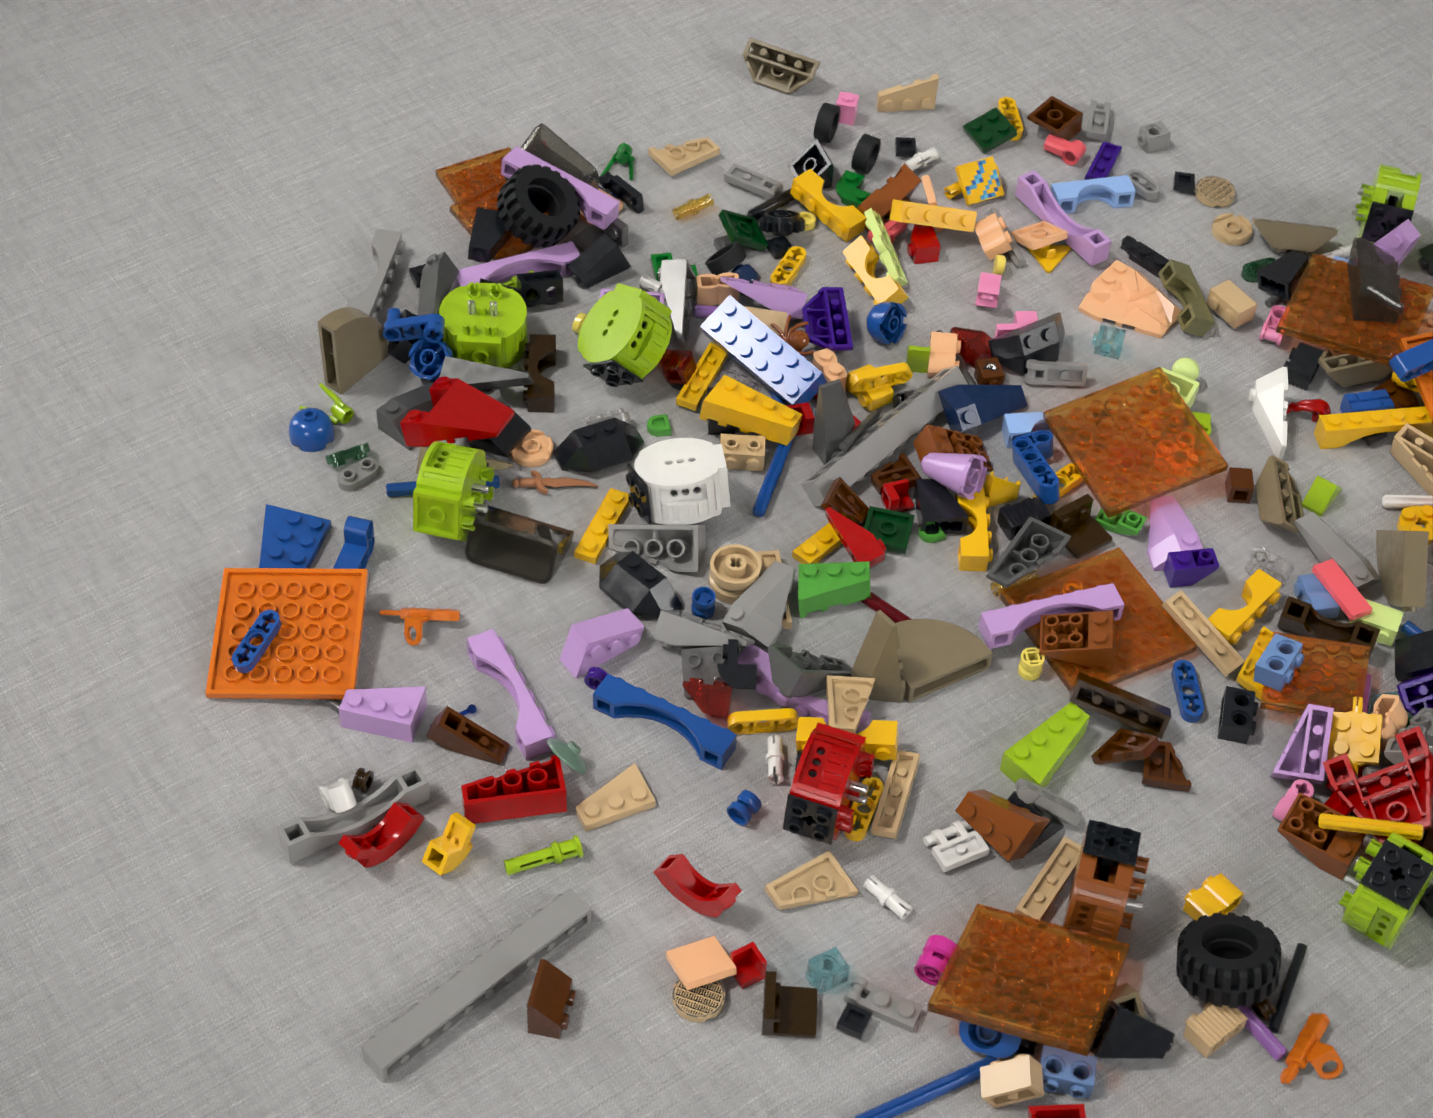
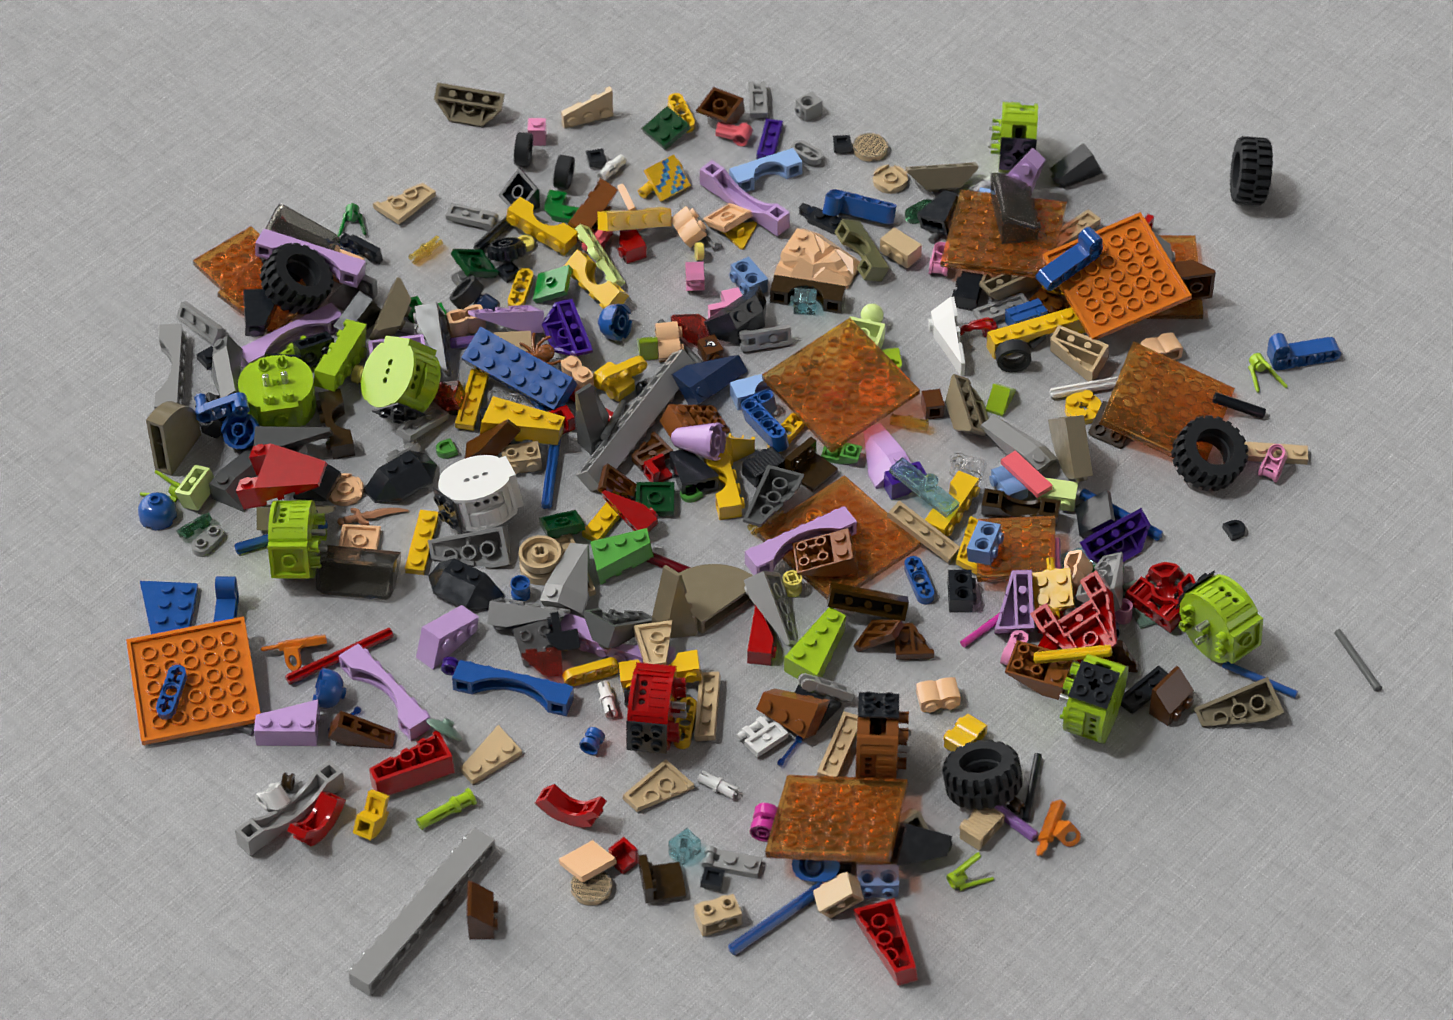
camera: 10 degrees left, 0 degrees up
(359, 412) = (195, 488): none -> yellowish green brick
(422, 234) = (200, 322): none -> light grey hinge
(444, 676) = (329, 688): none -> blue cylinder
(460, 641) = (333, 658): none -> red axle
(533, 504) = (360, 536): none -> light nougat tile
(566, 299) = (341, 356): none -> lime wedge
(637, 262) = (393, 312): none -> dark tan wedge
(638, 392) = (415, 428): none -> light grey hinge
(713, 425) = (492, 440): none -> reddish brown slope
(770, 537) = (562, 524): none -> dark green plate
(825, 268) = (552, 284): none -> plate
(850, 1072) = (717, 915): none -> tan brick
(978, 729) = (760, 644): none -> red slope
(999, 672) = (768, 595): none -> light grey wedge
(1000, 860) = (798, 739): none -> clear blue hinge
(1048, 300) = (748, 275): none -> medium blue brick
(1138, 340) = (828, 295): none -> dark brown arch
(1172, 1088) = (958, 876): none -> lime plant
(1187, 840) = (938, 694): none -> light nougat brick
(1191, 250) = (844, 202): none -> blue beam
(1207, 501) = (909, 422): none -> clear yellow pin
(1215, 580) = (924, 486): none -> clear light blue hinge
(1253, 770) = (979, 631): none -> dark pink bar
(1334, 393) = (997, 309): none -> light grey plate
(1345, 436) = (1013, 346): none -> black tyre

